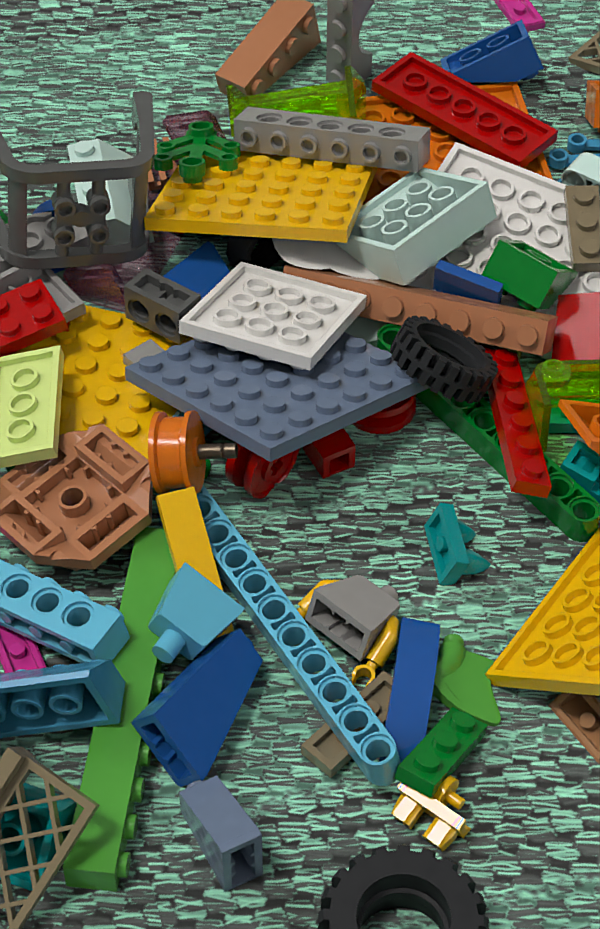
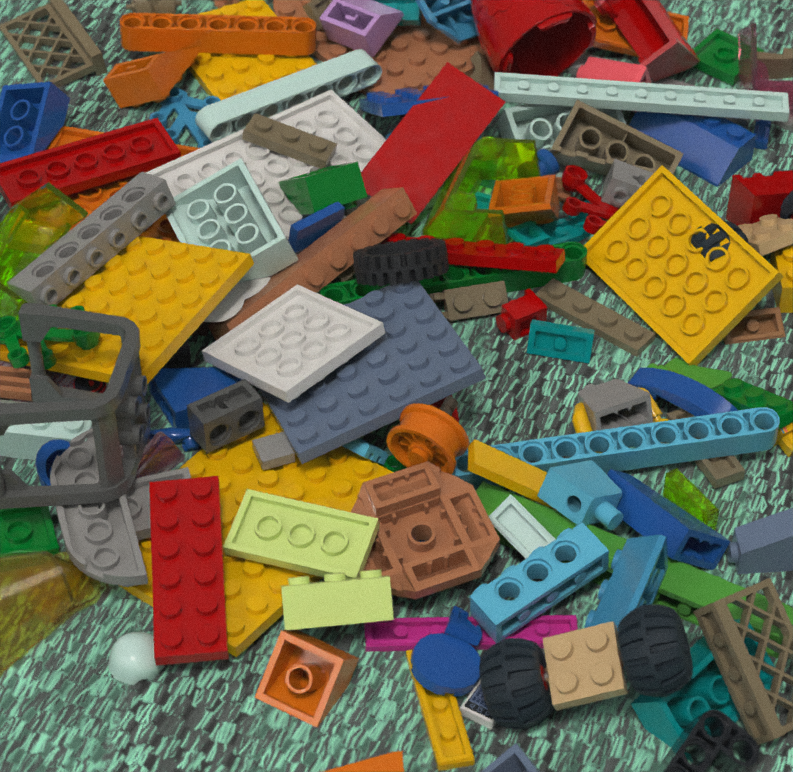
camera: 70 degrees left, 5 degrees down
(123, 576) = (519, 526): none -> light aqua tile
(261, 722) = (690, 498): none -> clear neon green plate
(461, 451) = (472, 301): none -> dark tan hinge
(470, 499) = (518, 314): none -> red brick
(513, 569) = (593, 315): none -> dark tan plate

